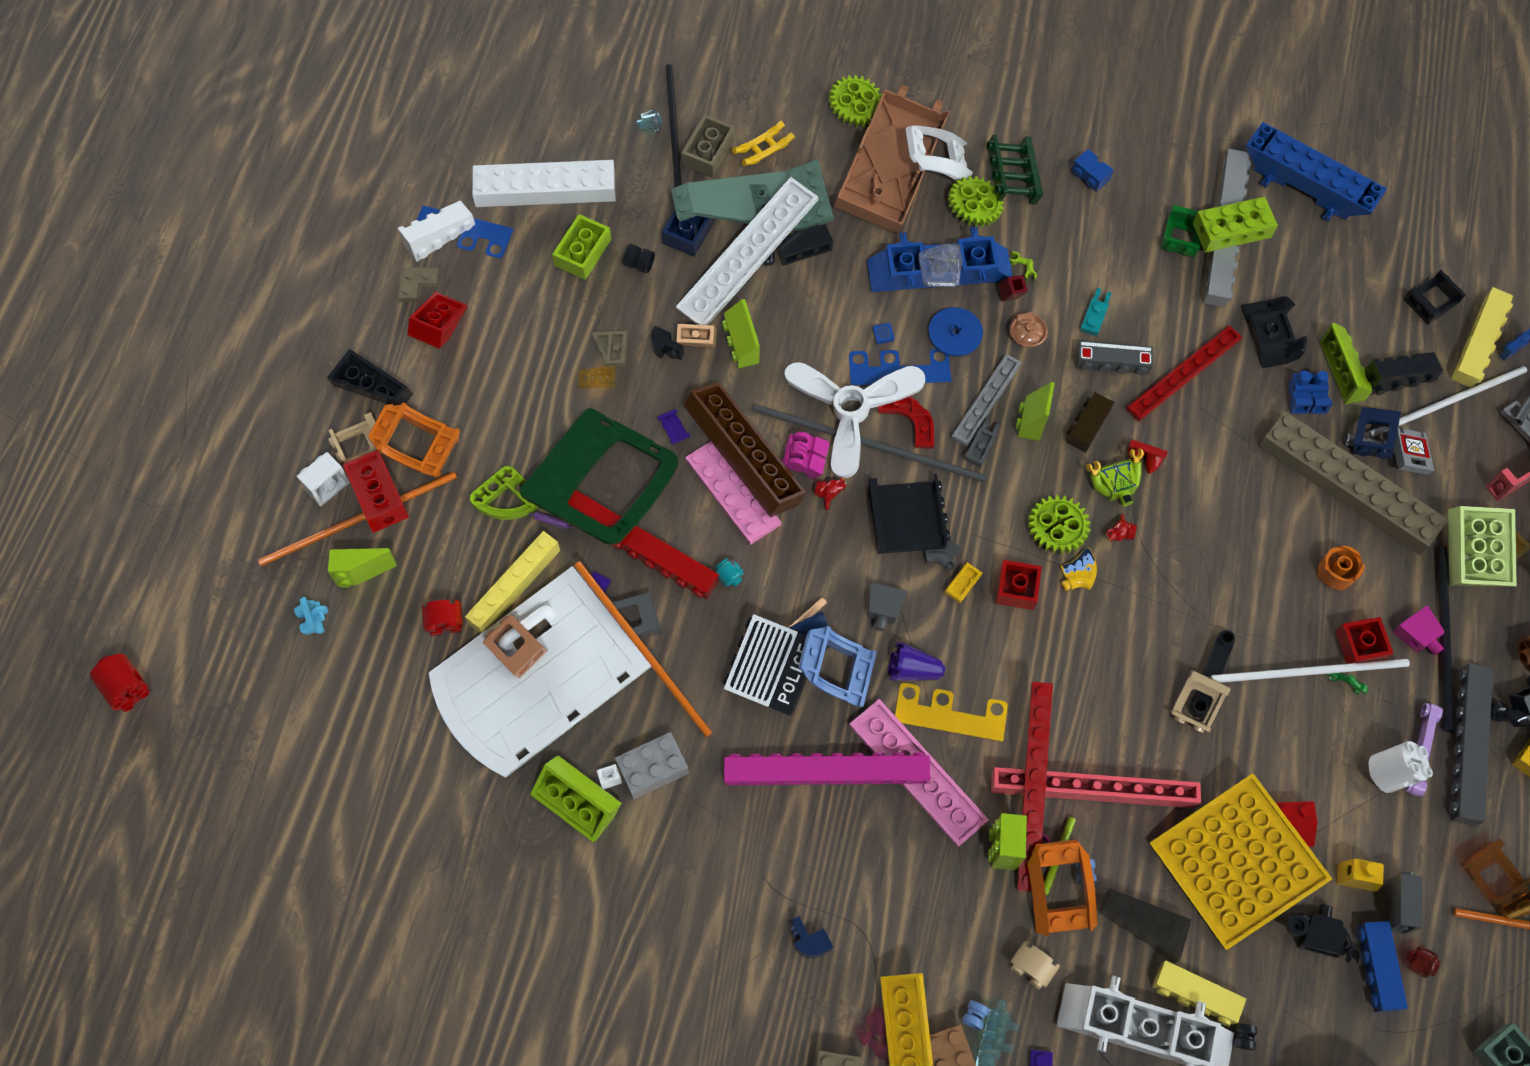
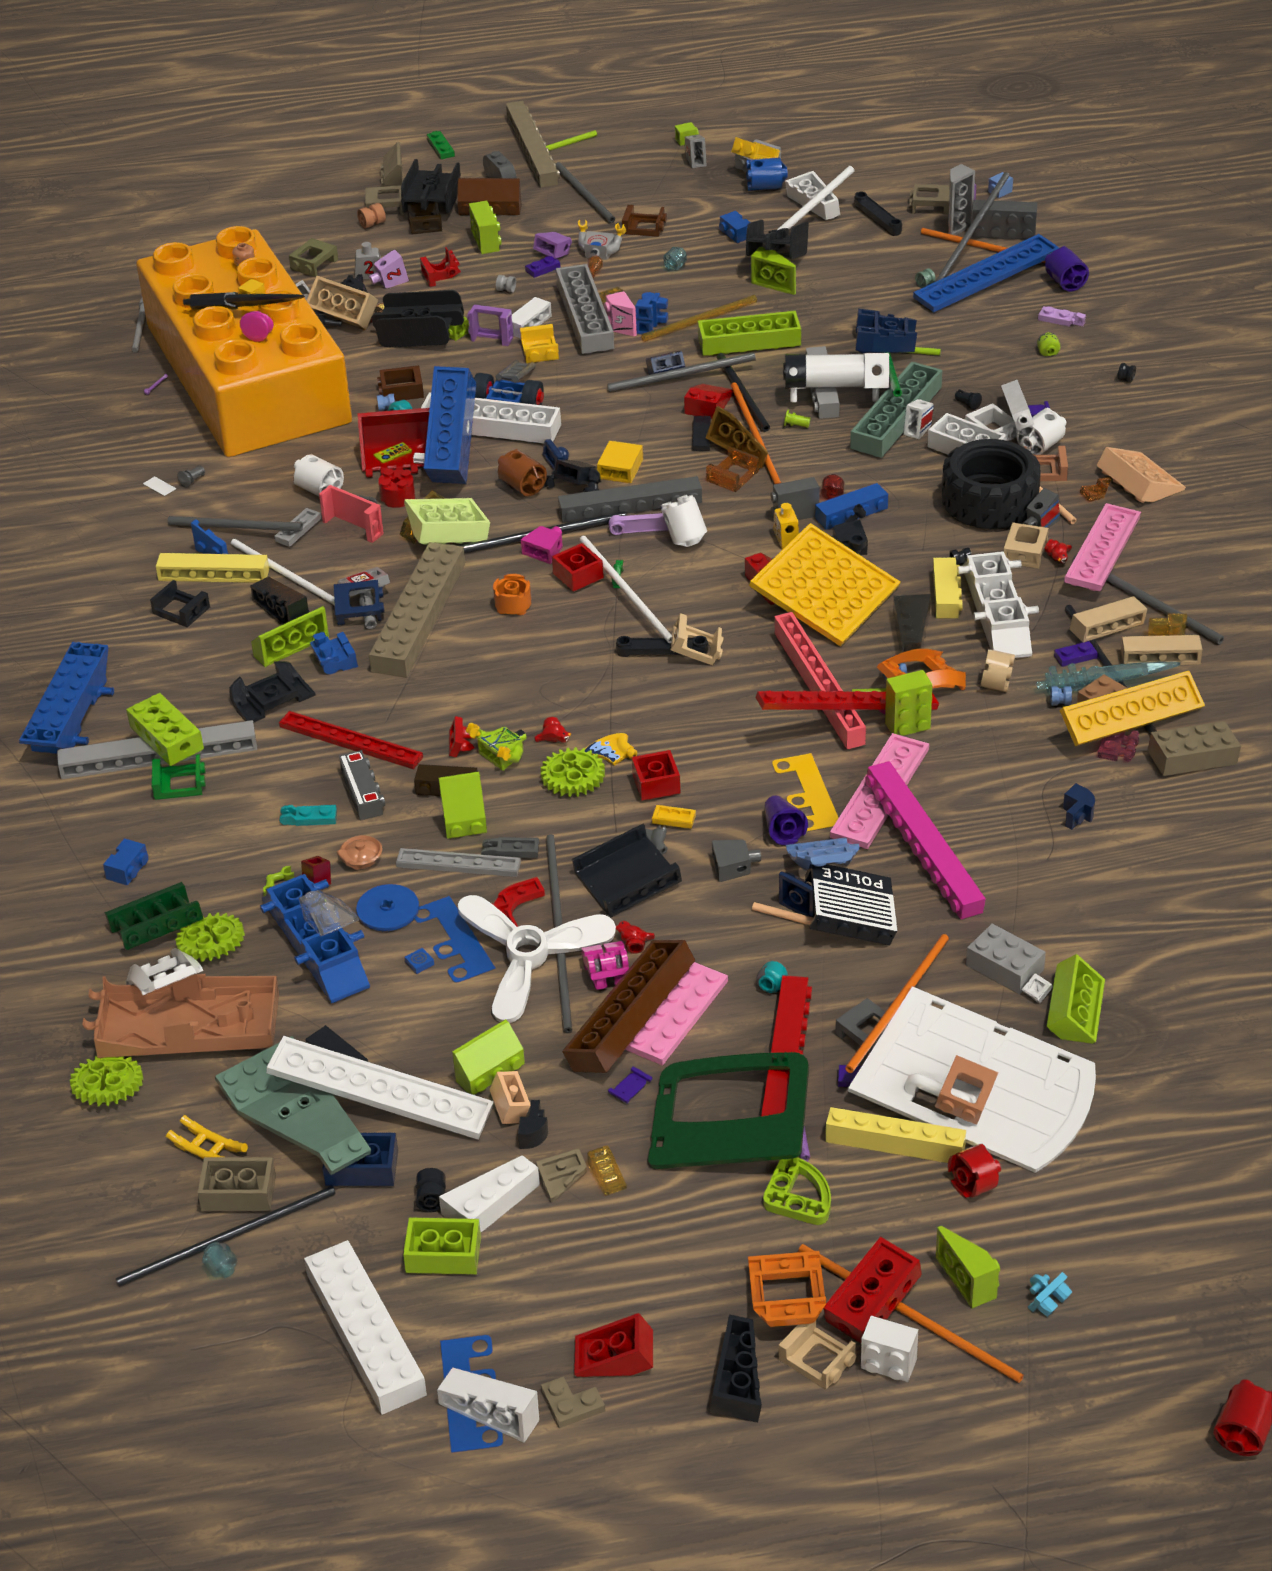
camera: 110 degrees left, 25 degrees down
(610, 287) = (491, 1193): none -> white wedge

